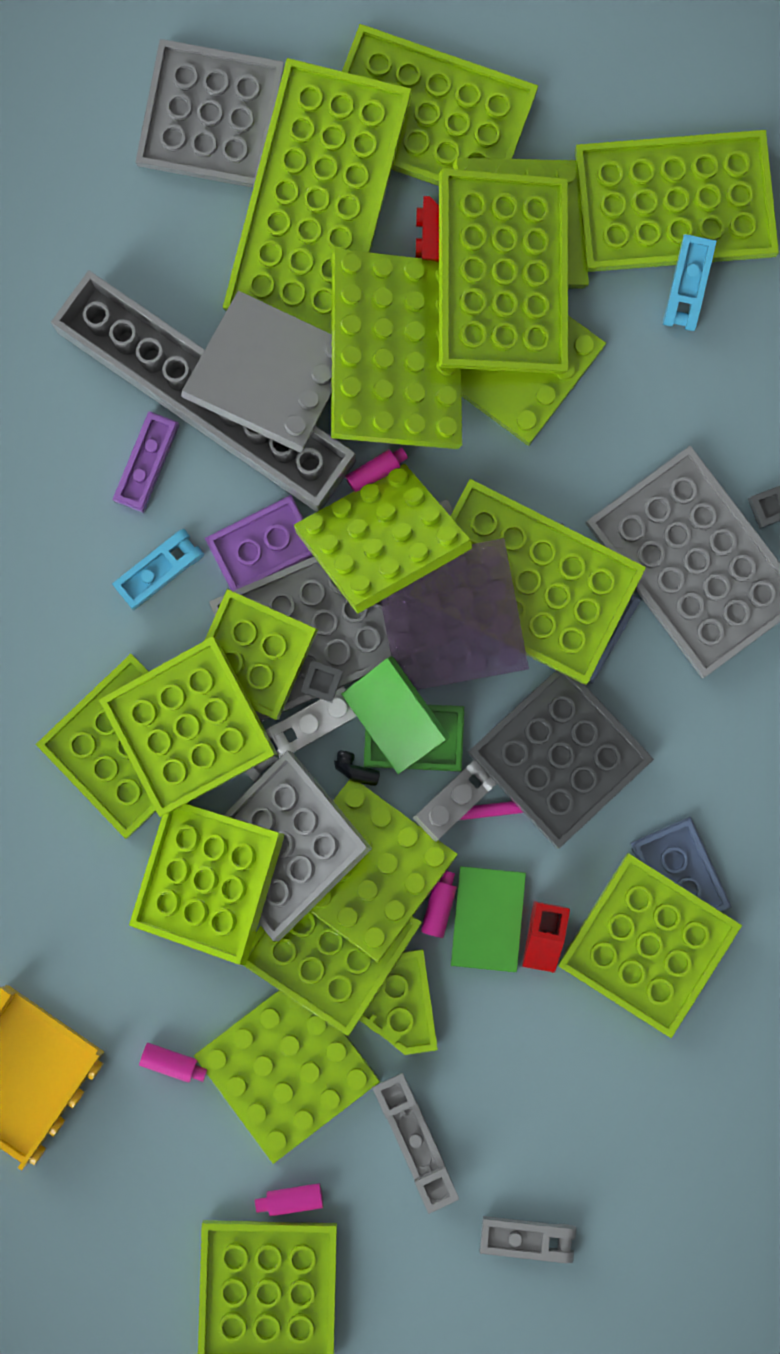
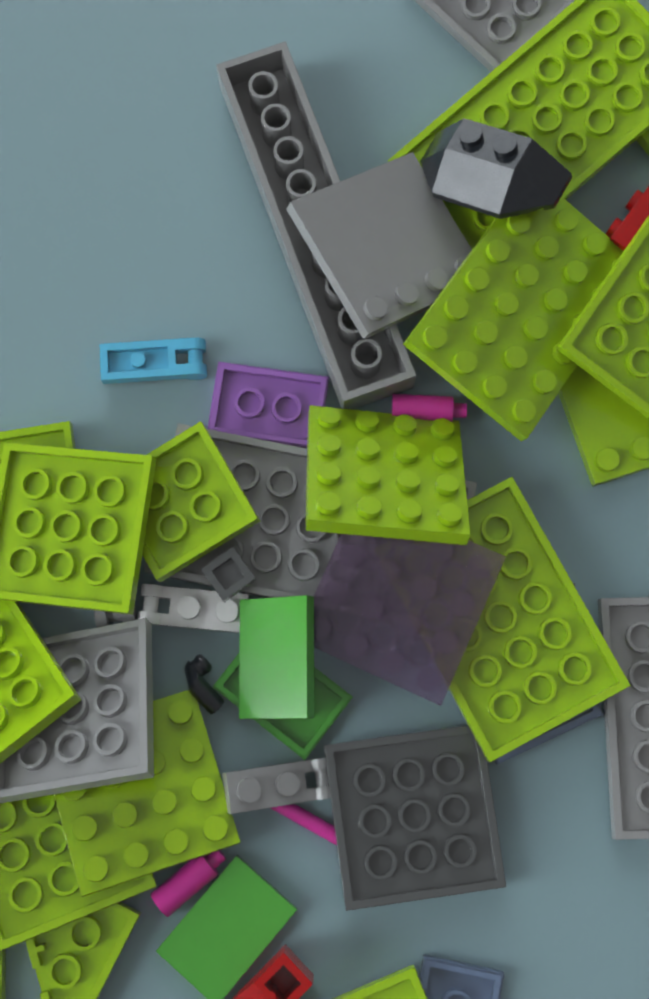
camera: 35 degrees right, 5 degrees down
(146, 461) = (215, 255): medium lavender tile -> none
(307, 269) = (493, 170): none -> wedge

